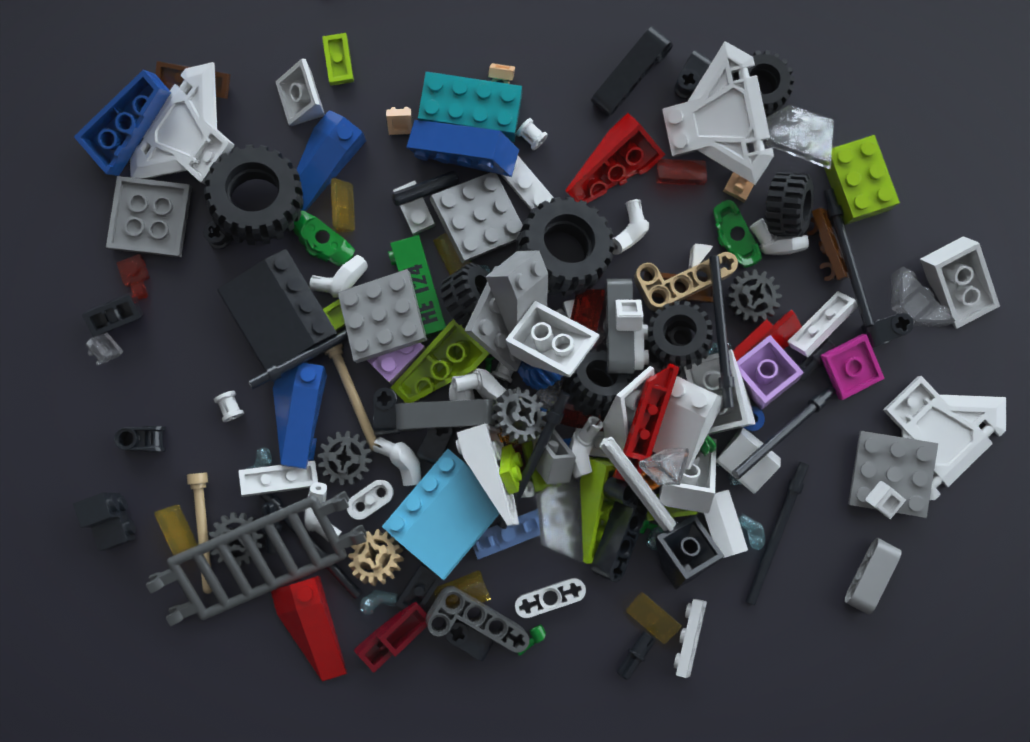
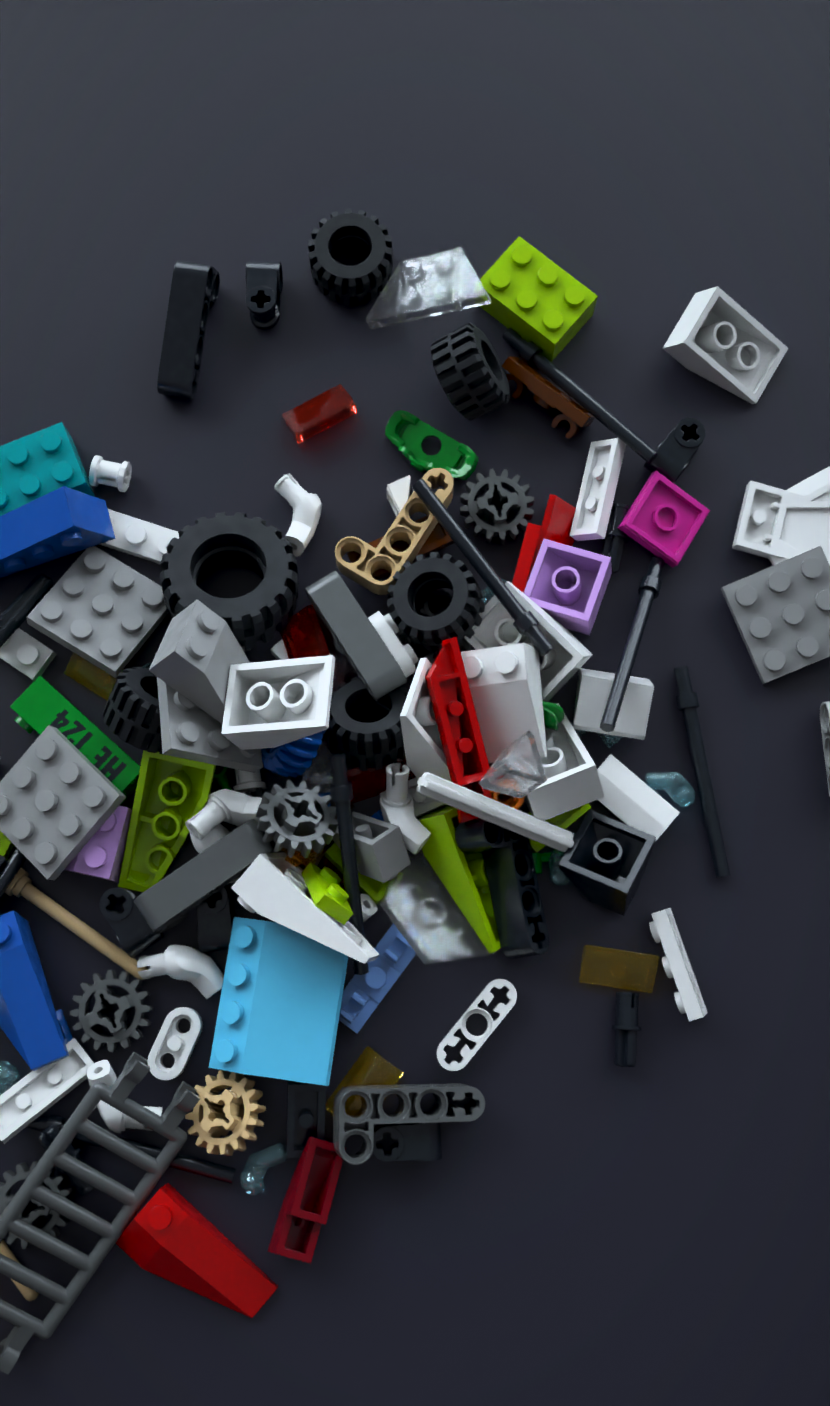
camera: 30 degrees left, 5 degrees down
(501, 72) = (28, 422): light nougat tile -> none
(538, 634) = (490, 1081): green hand -> none
(620, 155) = (232, 440): red wedge -> none
(629, 315) = (357, 614): white slope -> none
(723, 117) = (329, 318): white plate -> none
(738, 187) = (399, 388): light nougat tile -> none
(760, 419) = (596, 649): blue plate -> none
(777, 245) = (489, 429): white arm -> none
(885, 499) = (802, 649): white slope -> none
(917, 301) = (691, 397): clear slope -> none

